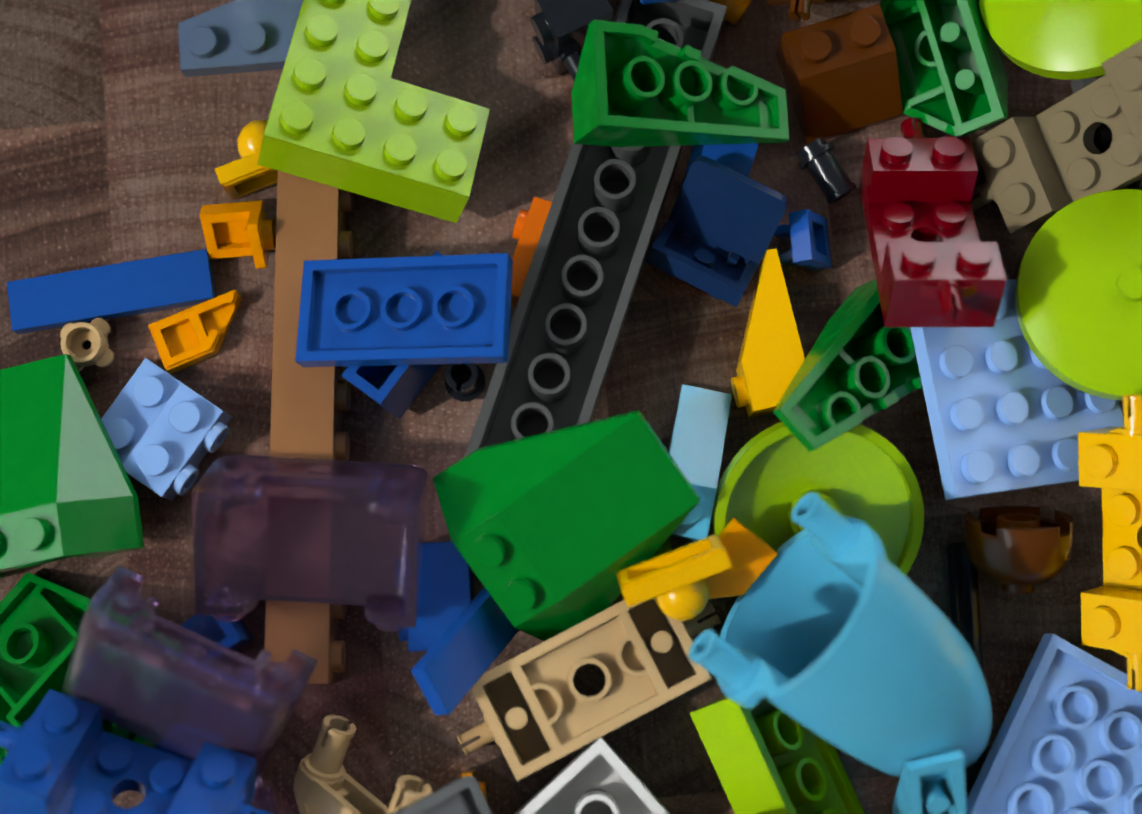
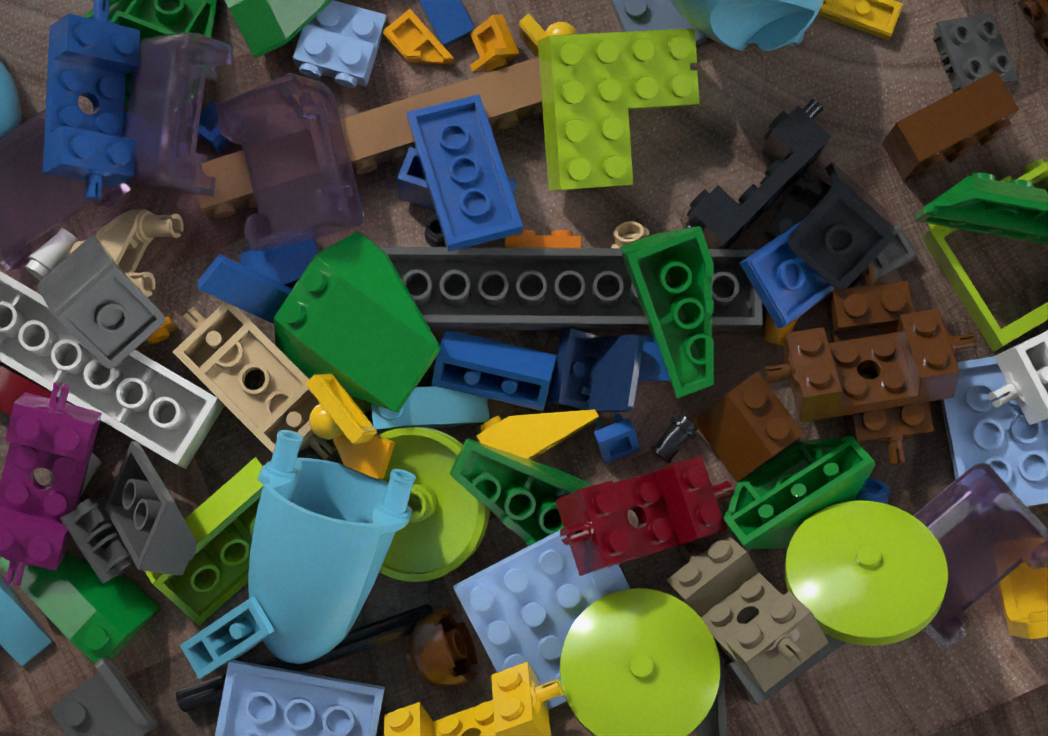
camera: 70 degrees right, 0 degrees up
(551, 142) = (628, 233): none -> tan plate
(675, 358) = (494, 370): none -> blue brick

